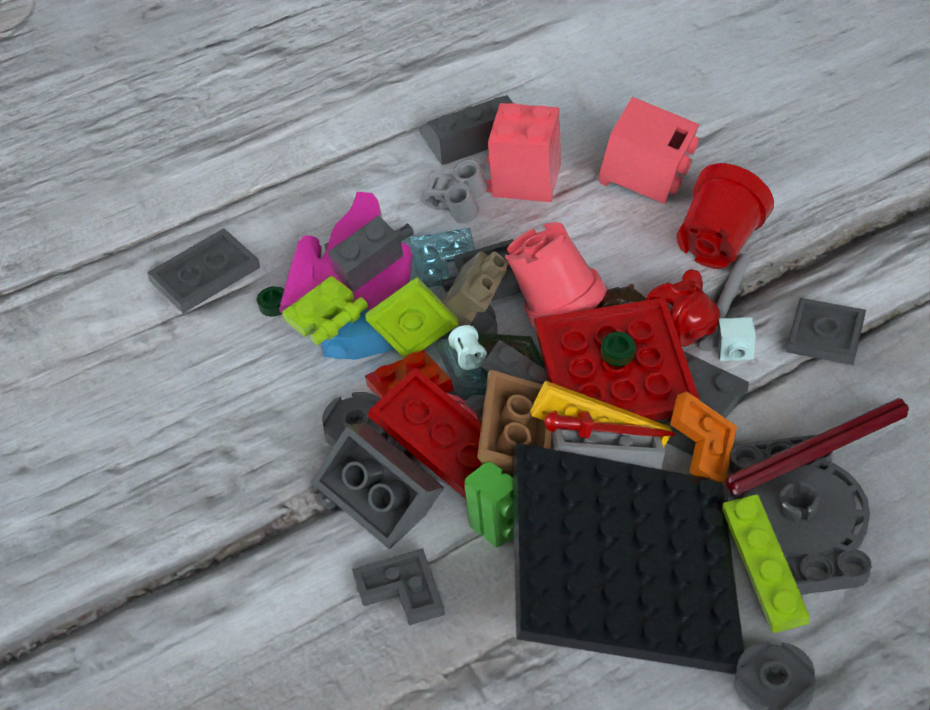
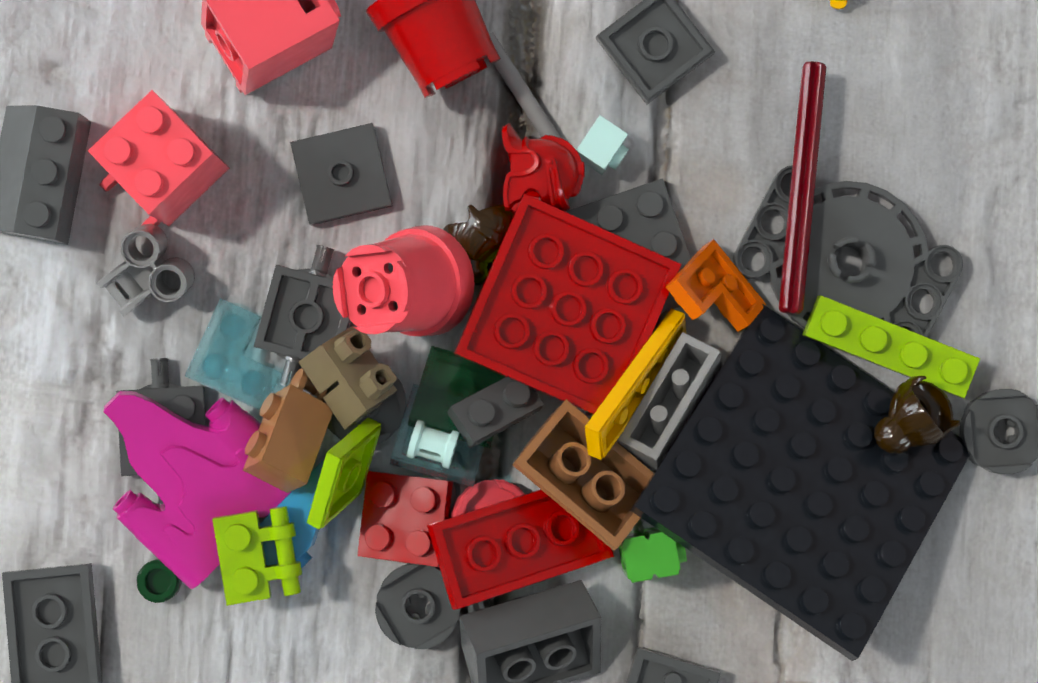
camera: 65 degrees left, 40 degrees up
(366, 253) = (220, 468): dark grey brick -> none
(397, 272) = (289, 435): none -> medium nougat brick
(585, 425) = (647, 411): red sword -> none
(601, 241) = (341, 174): none -> dark grey plate
(618, 348) = (561, 298): dark green tile -> none
(728, 589) = (917, 417): none -> dark brown piece

